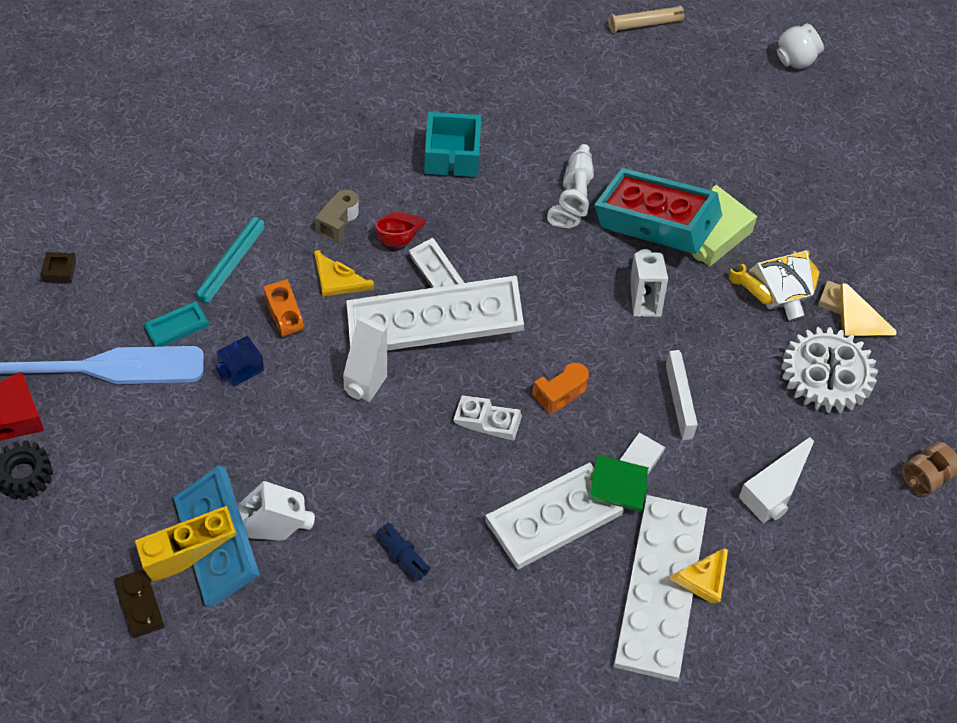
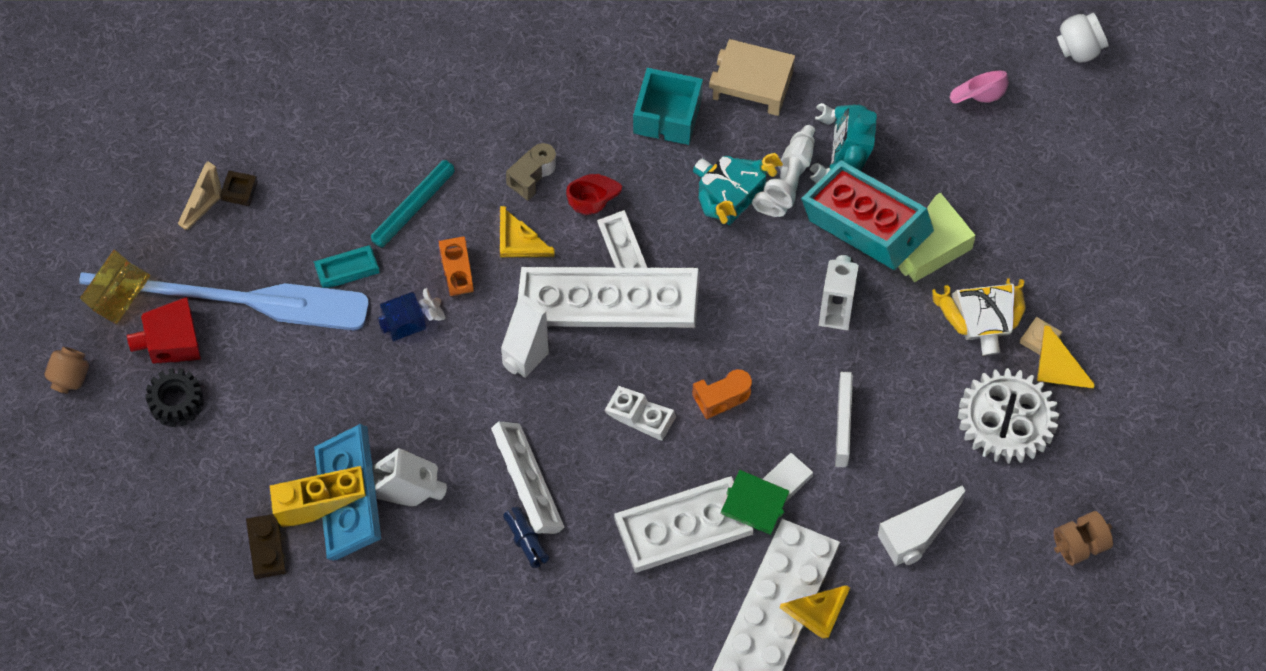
camera: 15 degrees right, 5 degrees up
(24, 279) = (203, 196): none -> tan tile
(266, 348) = (431, 307): none -> white plant
(392, 494) = (527, 478): none -> white plate
(521, 109) = (753, 74): none -> tan panel
(526, 202) = (732, 184): none -> teal torso
(624, 147) = (852, 136): none -> teal torso
(725, 98) = (982, 88): none -> bright pink cap

